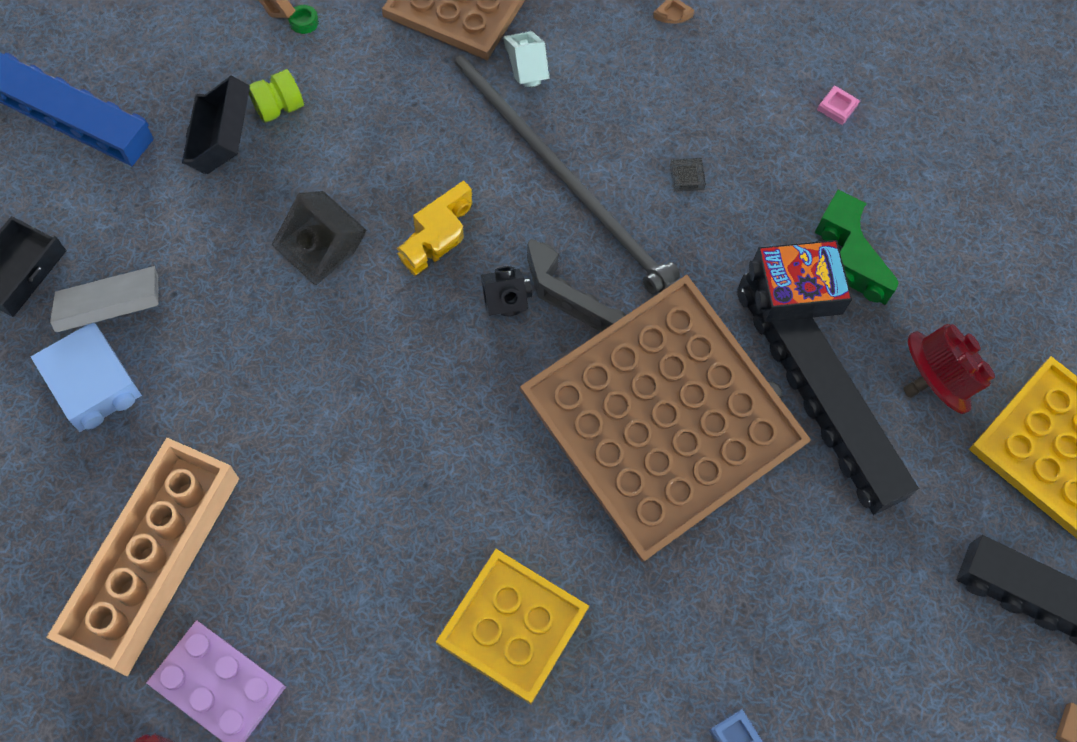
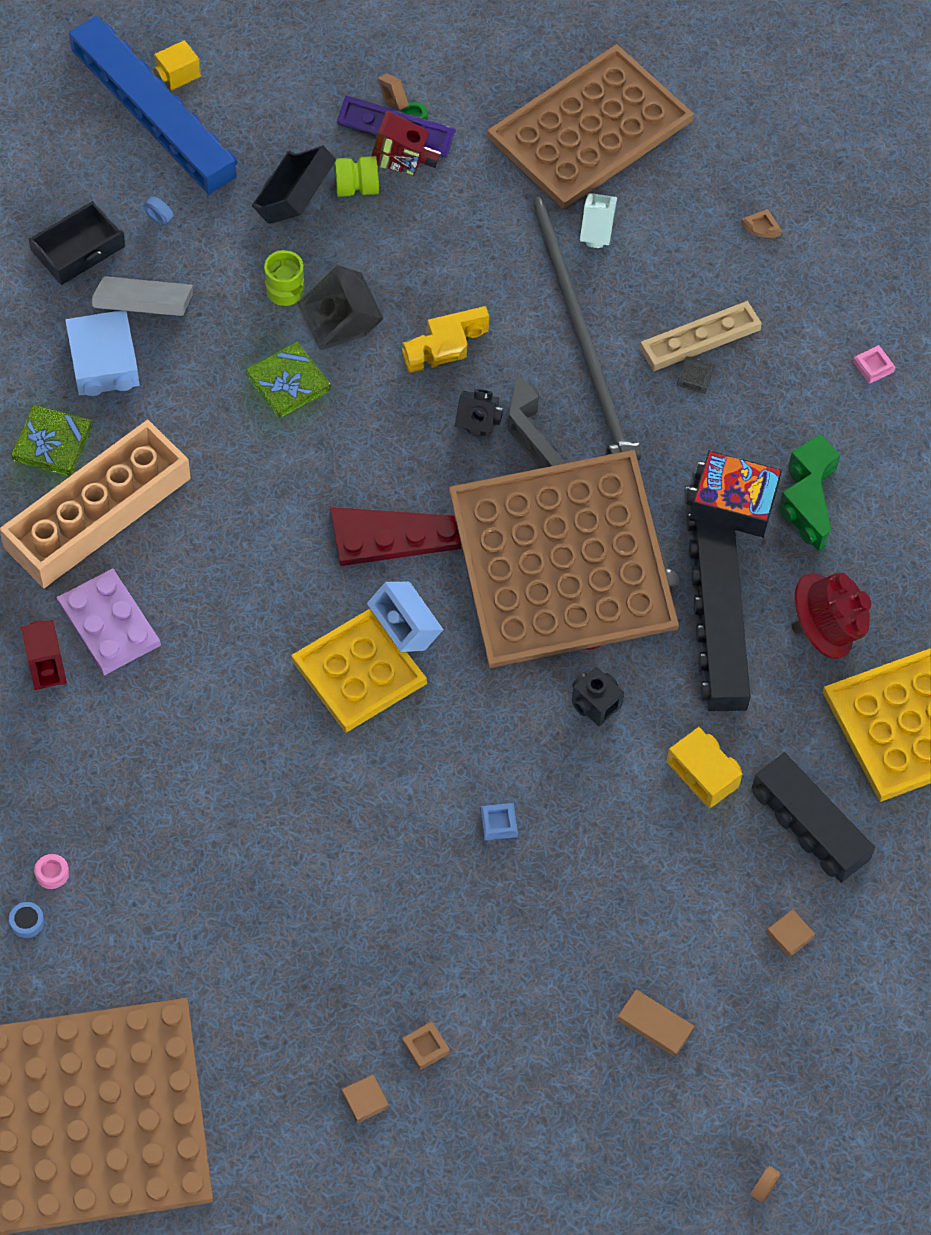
camera: 25 degrees right, 5 degrees down
(46, 47) = (177, 65): none -> yellow brick
(68, 497) = (52, 440): none -> clear neon green tile
(86, 201) = (158, 210): none -> medium blue tile
(247, 224) = (284, 277): none -> lime wheel
(291, 34) = (368, 118): none -> dark purple tile
(296, 330) = (288, 379): none -> clear neon green tile
(308, 49) = (402, 145): none -> dark red torso
(471, 458) = (385, 535): none -> dark red wing
(535, 546) = (405, 616): none -> light blue brick
(673, 136) = (700, 336): none -> tan plate
(768, 550) = (596, 695): none -> black brick
(910, 582) = (704, 767): none -> yellow brick

